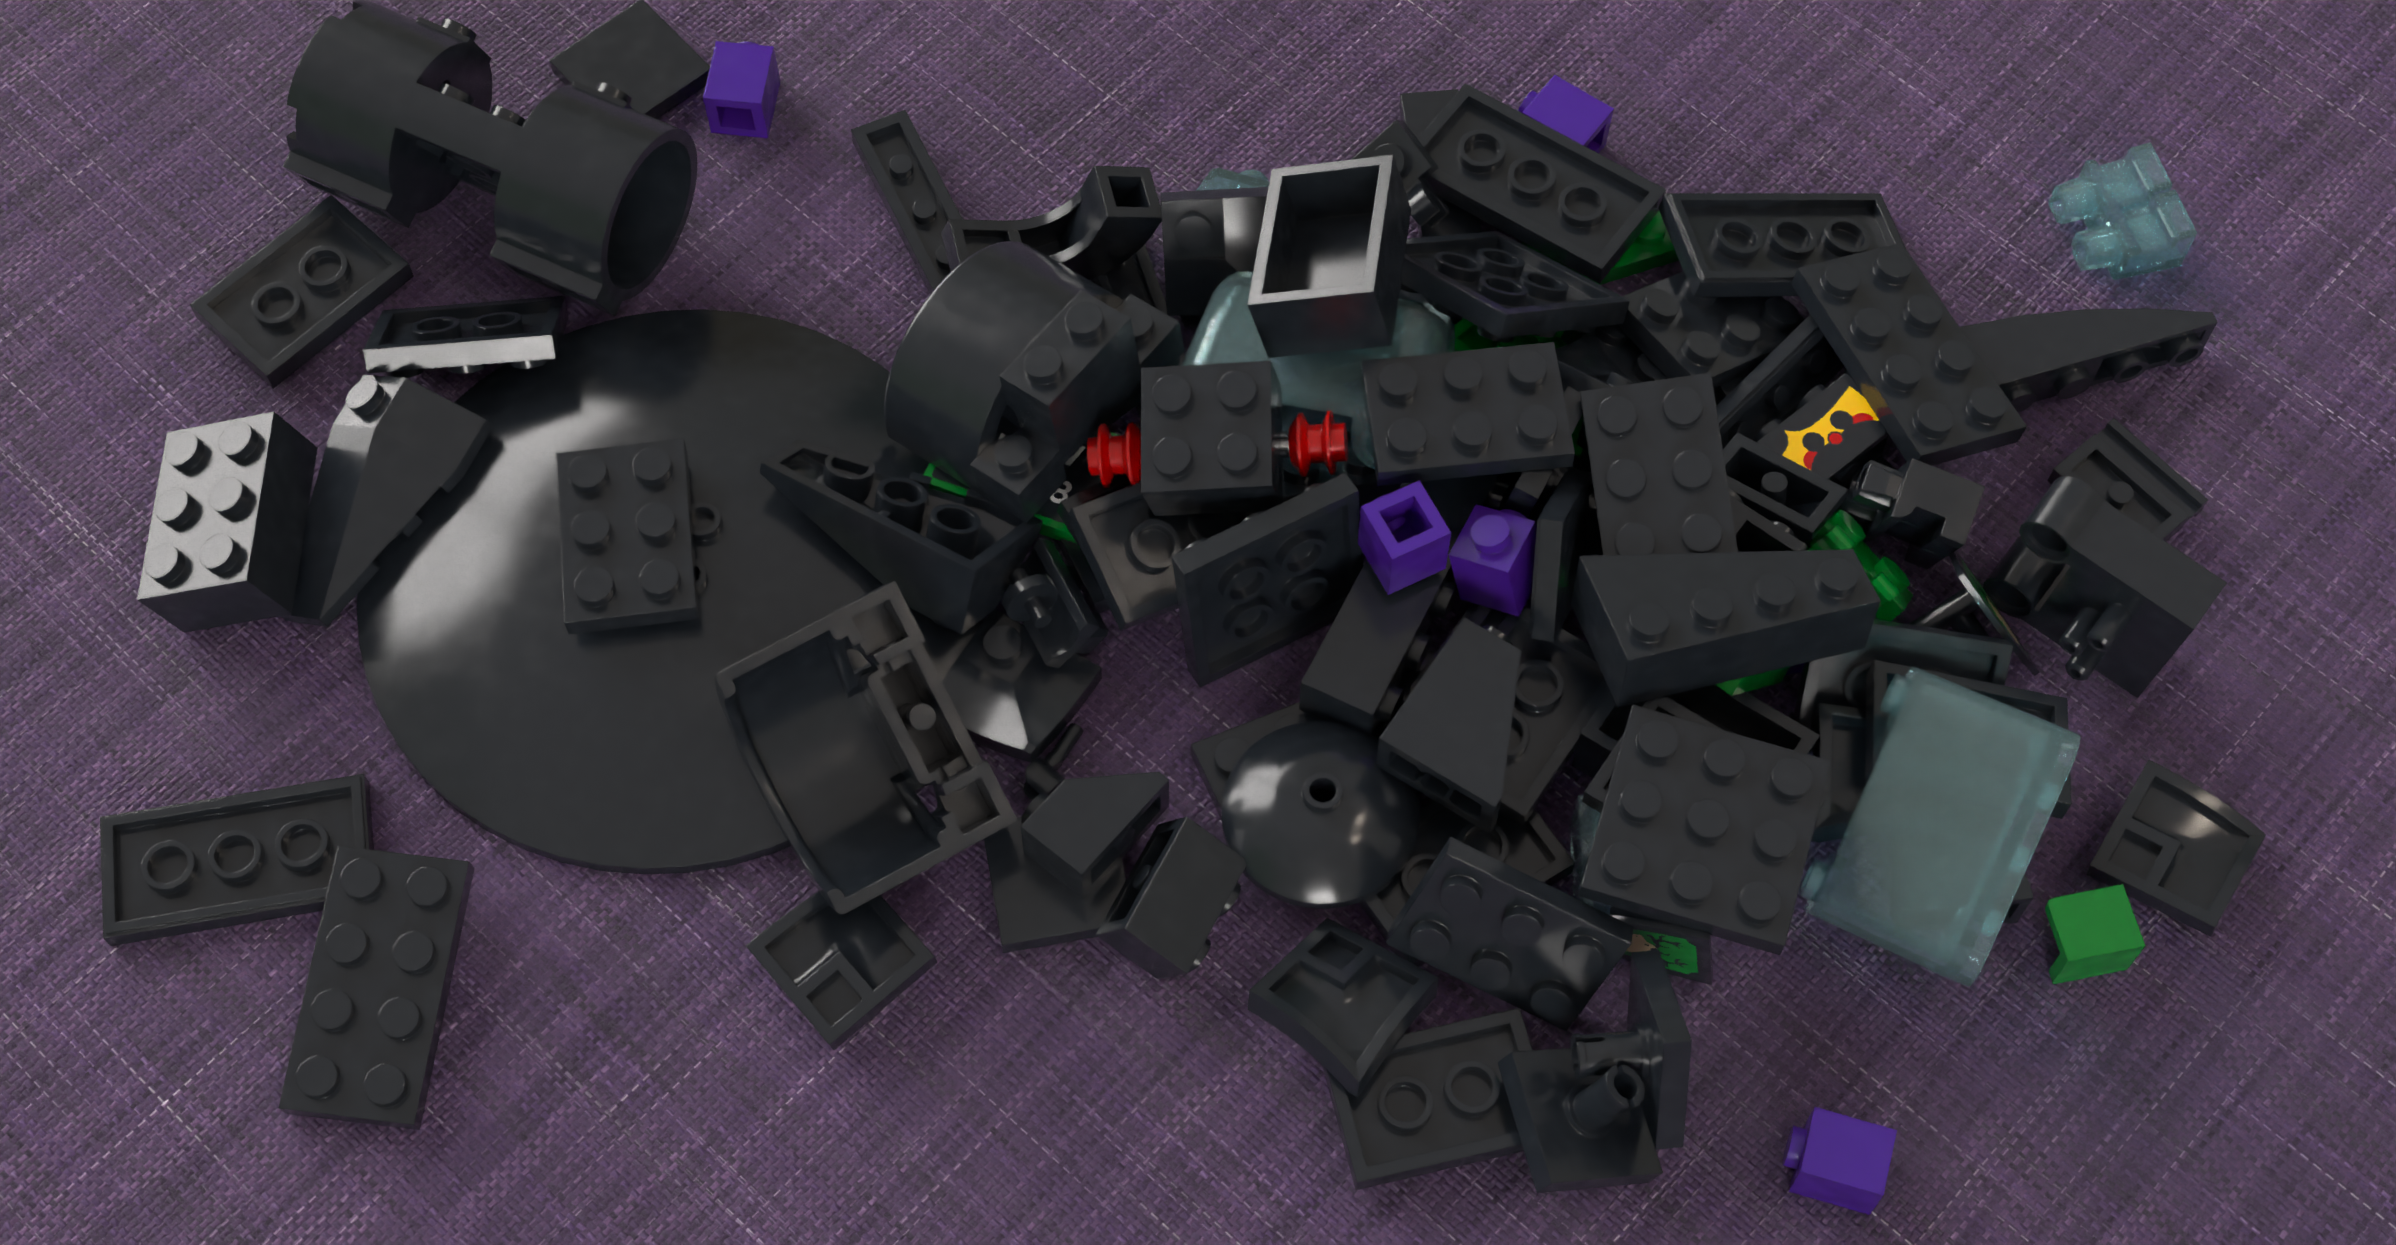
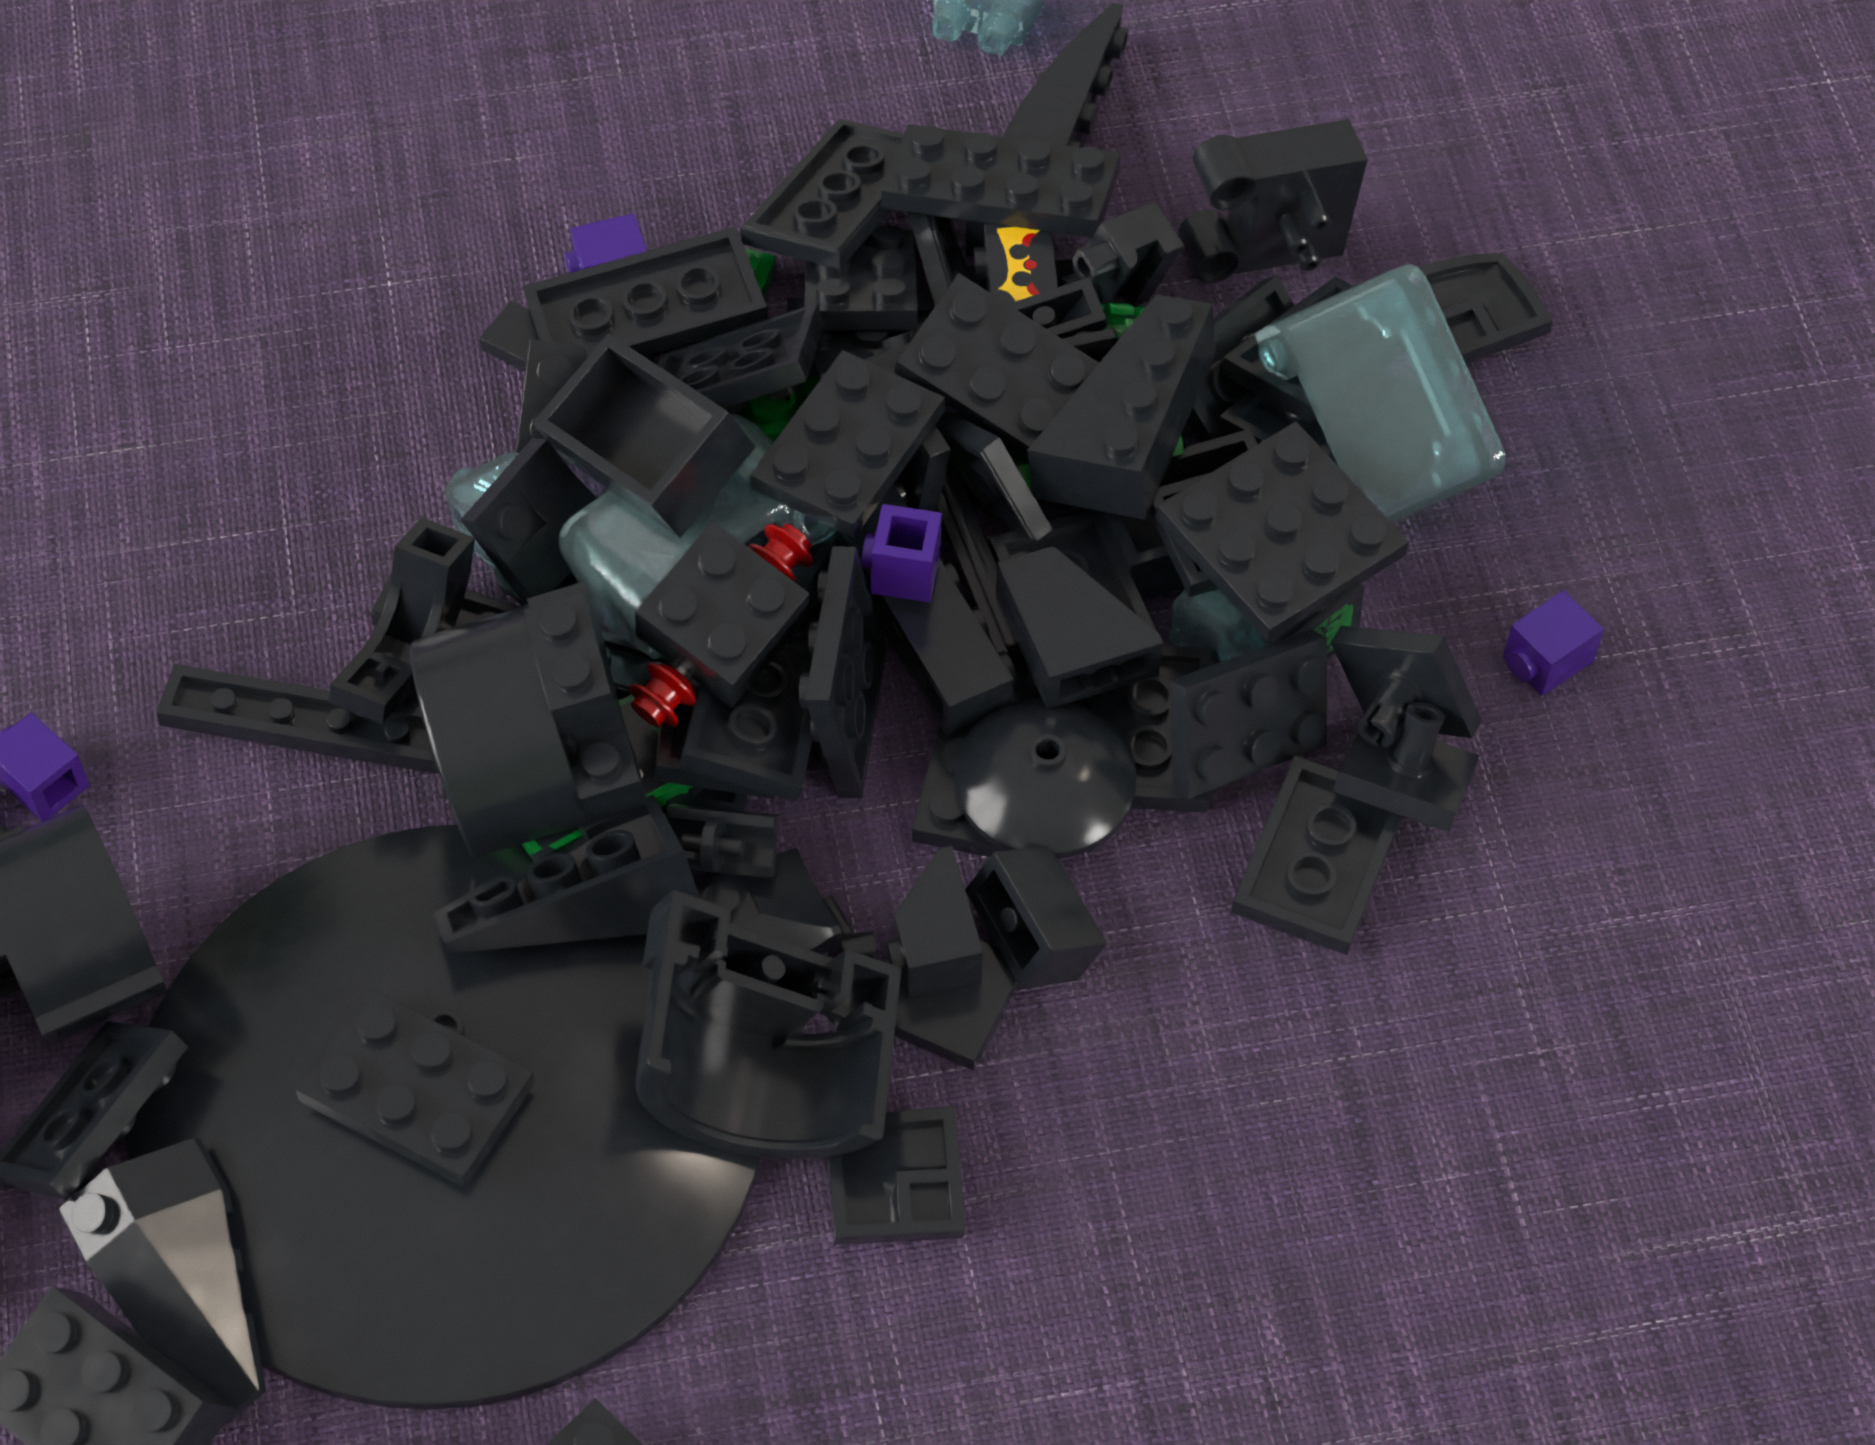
camera: 55 degrees left, 5 degrees down
(1343, 1000) = (1205, 858): black plate -> none
(1495, 559) = (967, 518): dark purple brick -> none
(1959, 609) = (1214, 275): black shield -> none
(2093, 933) = (1506, 386): green panel -> none
(2133, 480) = (1171, 139): black plate -> none

